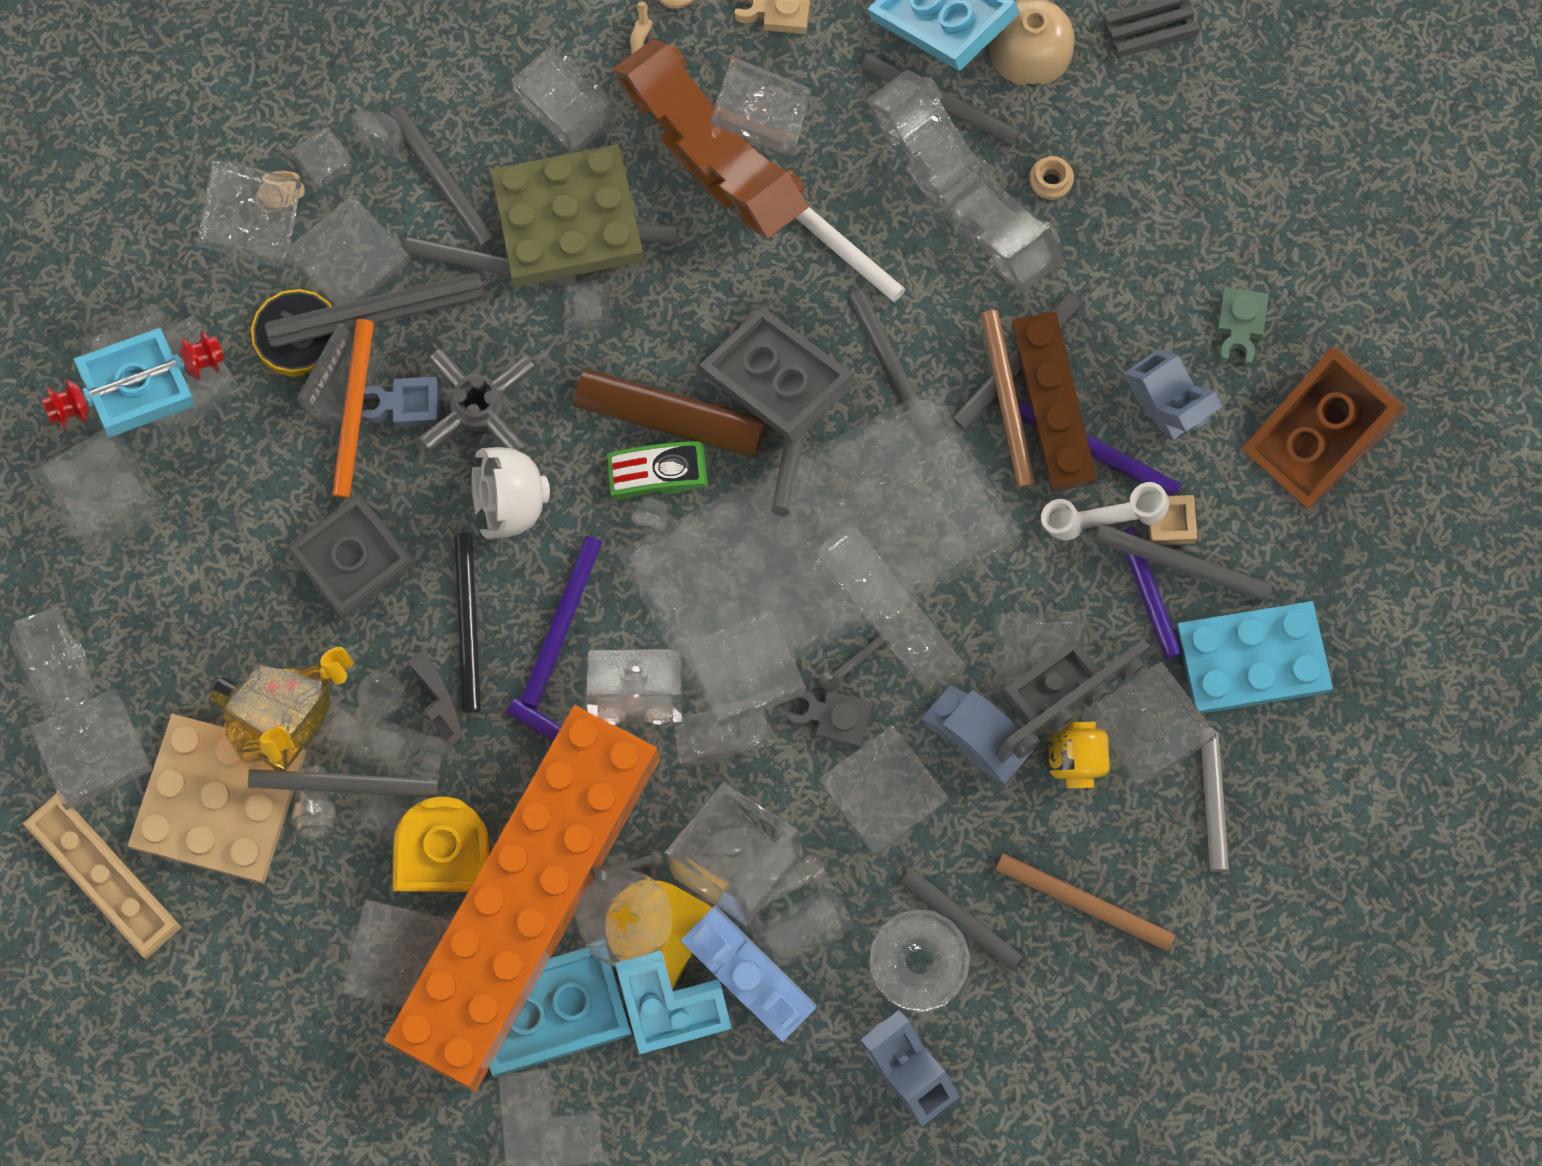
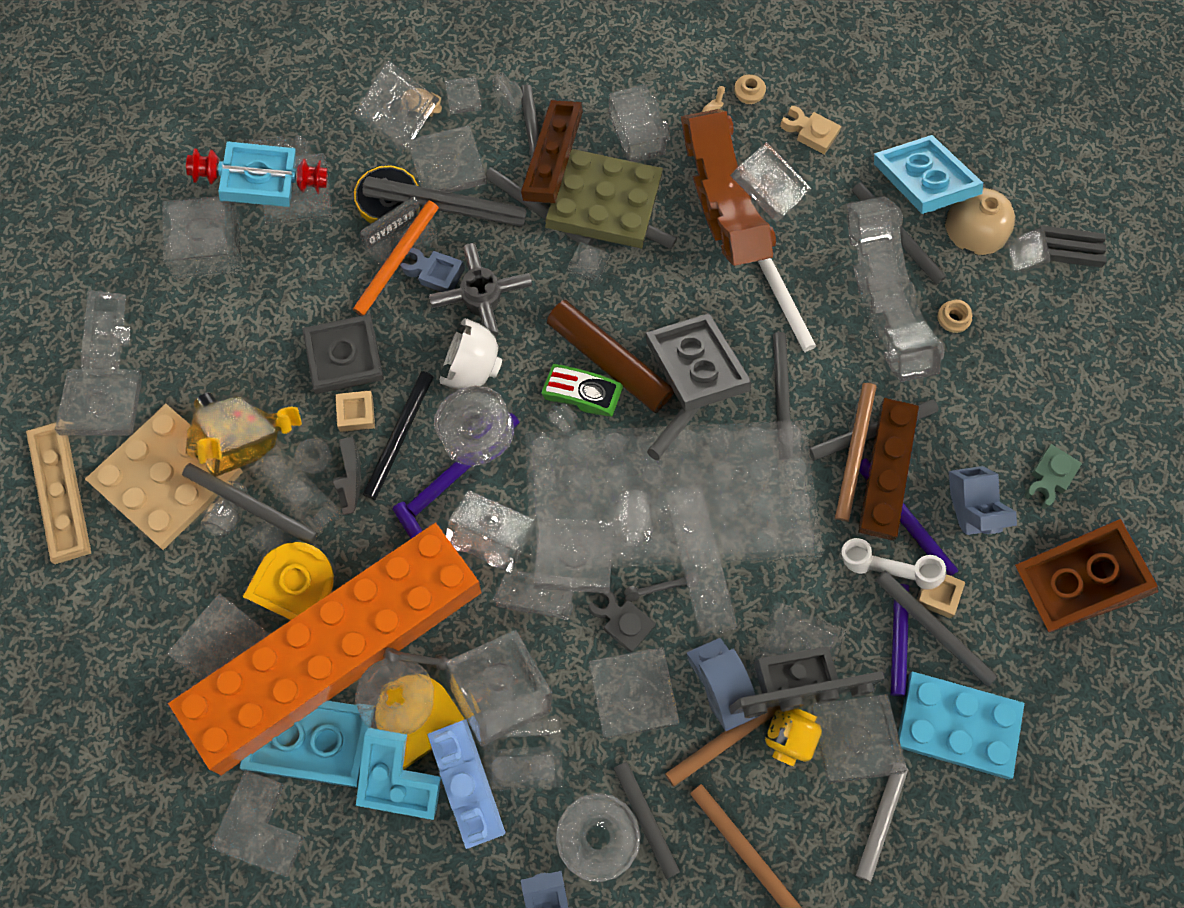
camera: 20 degrees right, 5 degrees down
(403, 618) = (355, 411): none -> tan plate
(474, 184) = (552, 152): none -> reddish brown plate
(540, 551) = (474, 425): none -> clear wheel
(791, 596) = (632, 518): none -> clear brick
(1000, 807) = (715, 748): none -> medium nougat bar
(1104, 56) = (1029, 251): none -> clear plate

